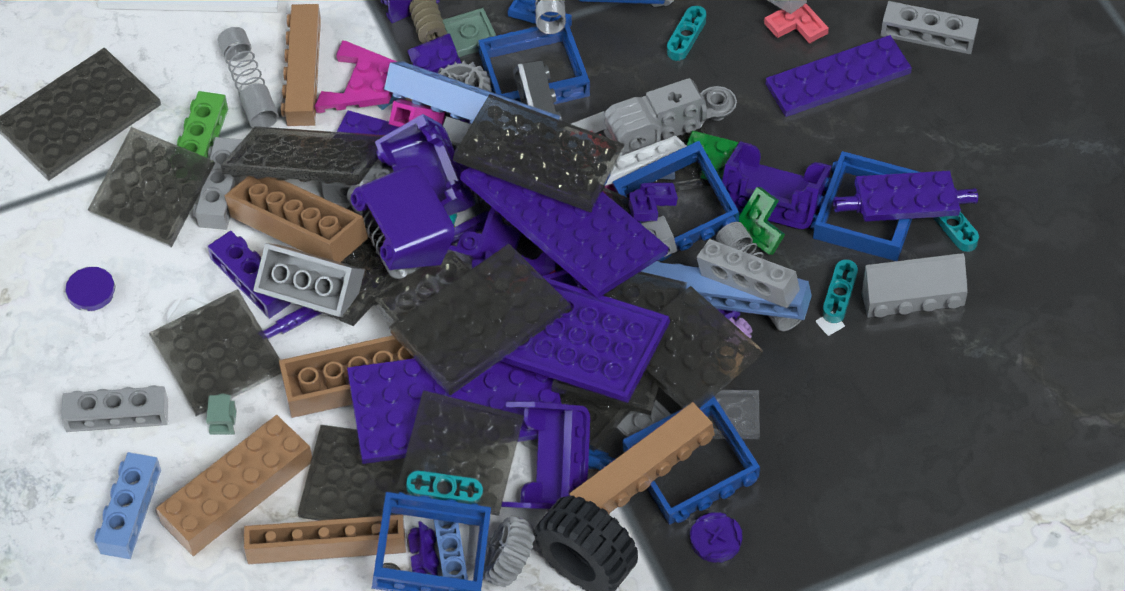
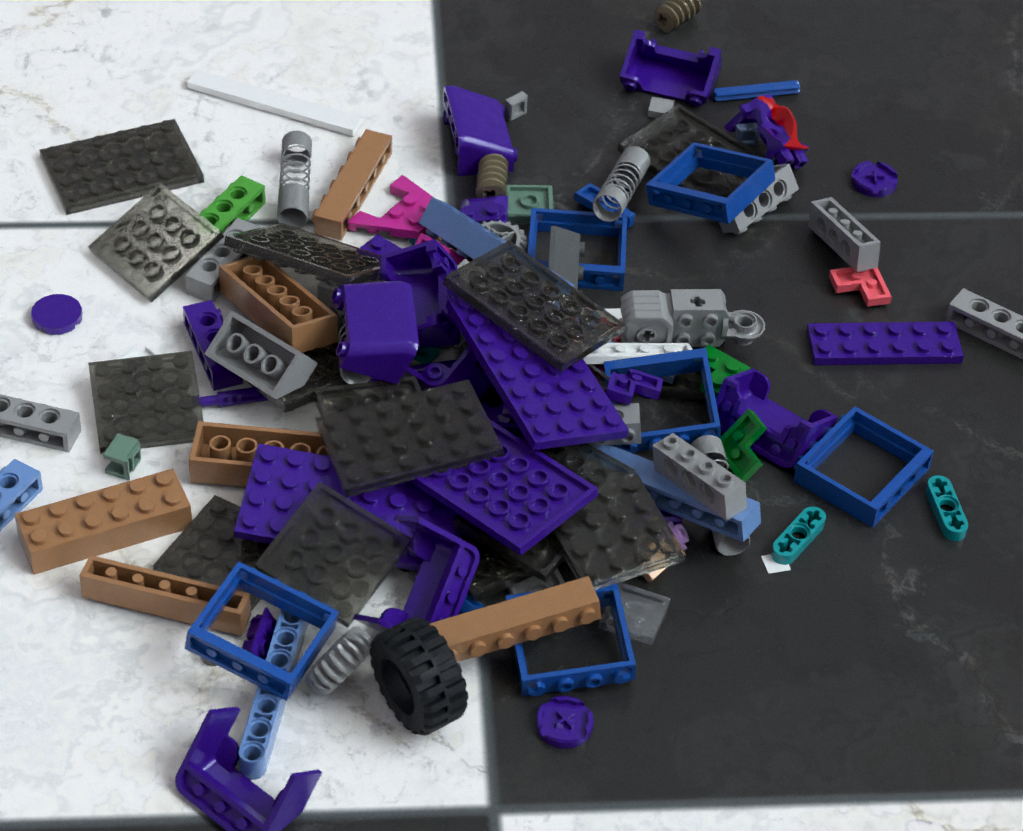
camera: 15 degrees right, 10 degrees down
(464, 481) = (323, 580): teal beam -> none
(686, 41) = (742, 271): teal beam -> none
(906, 196) = (903, 464): dark purple plate -> none
(915, 285) = (878, 549): light grey slope -> none

